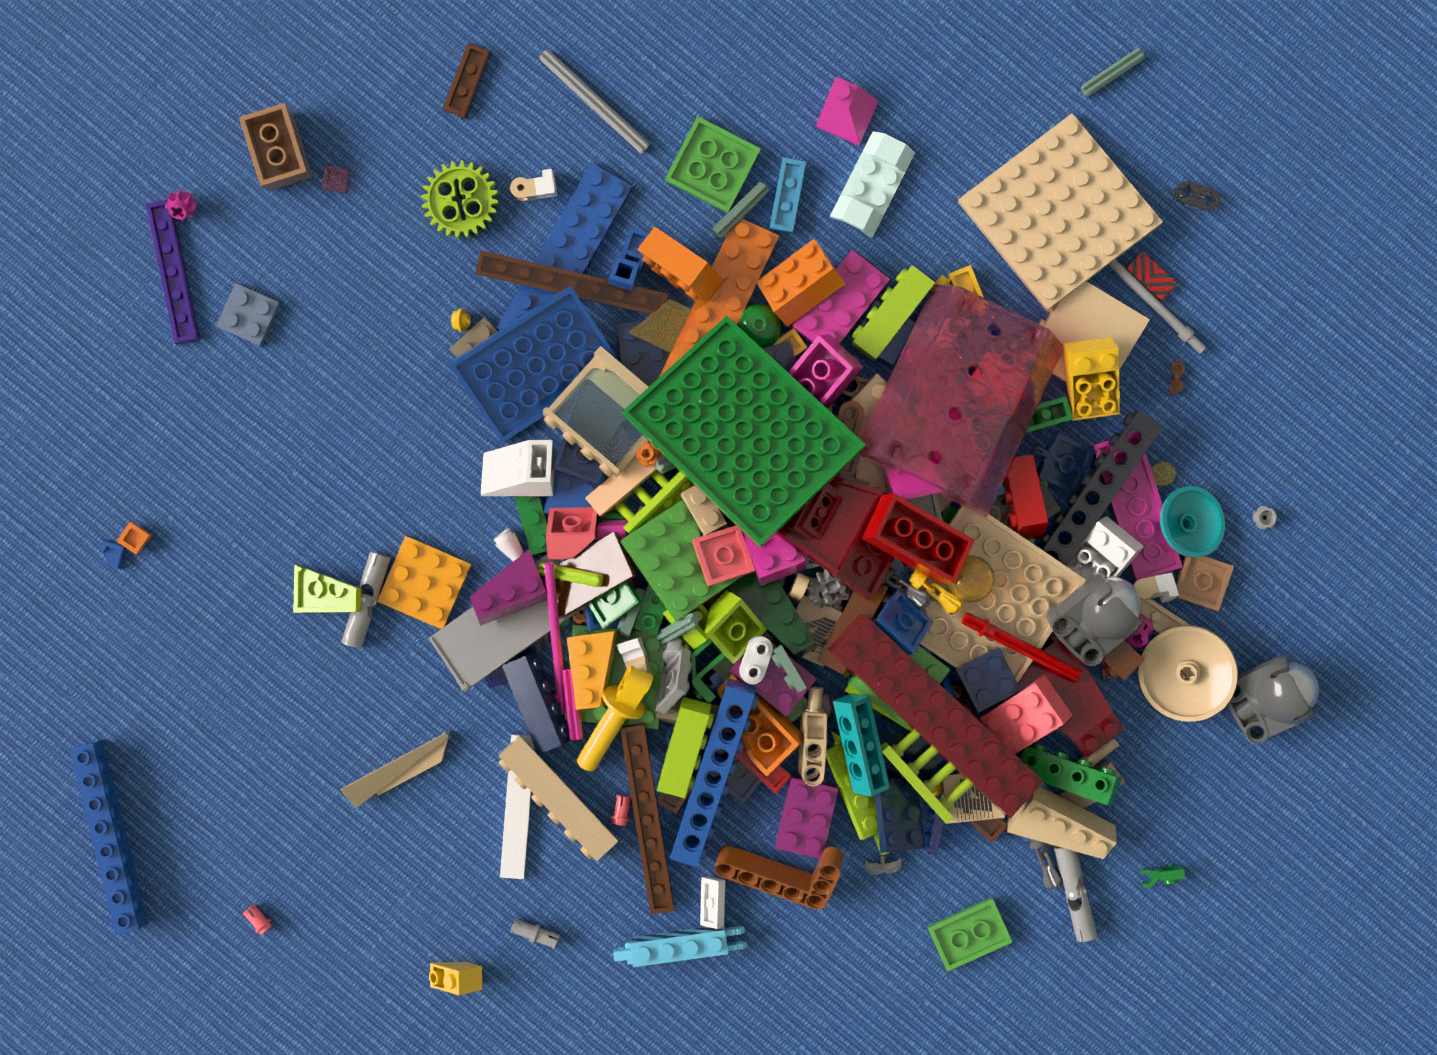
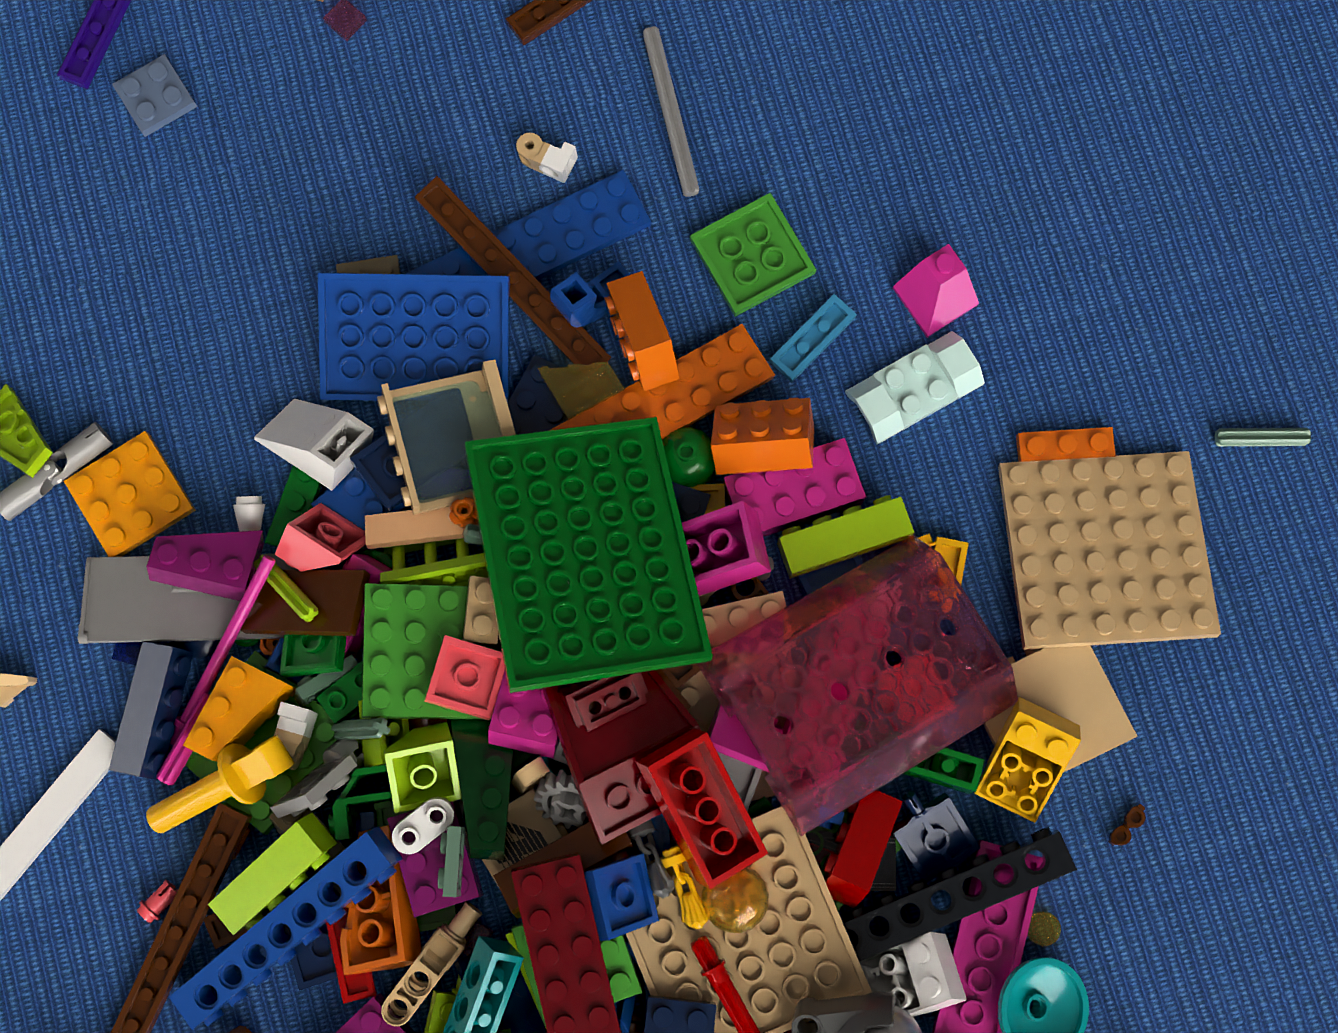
camera: 35 degrees right, 10 degrees down
(439, 204) = (432, 111): lime gear -> none
(460, 320) = (369, 242): yellow plate -> none
(558, 799) = (95, 838): tan brick -> none
(740, 209) = (751, 320): sand green axle -> none
(854, 422) = (715, 627): reddish brown plate -> none
(991, 160) = (1065, 444): none -> orange plate
(1151, 276) = (1169, 690): tile -> none
(1184, 333) = (1168, 780): light grey bar -> none
(1194, 201) = (1282, 629): clear smoke beam -> none

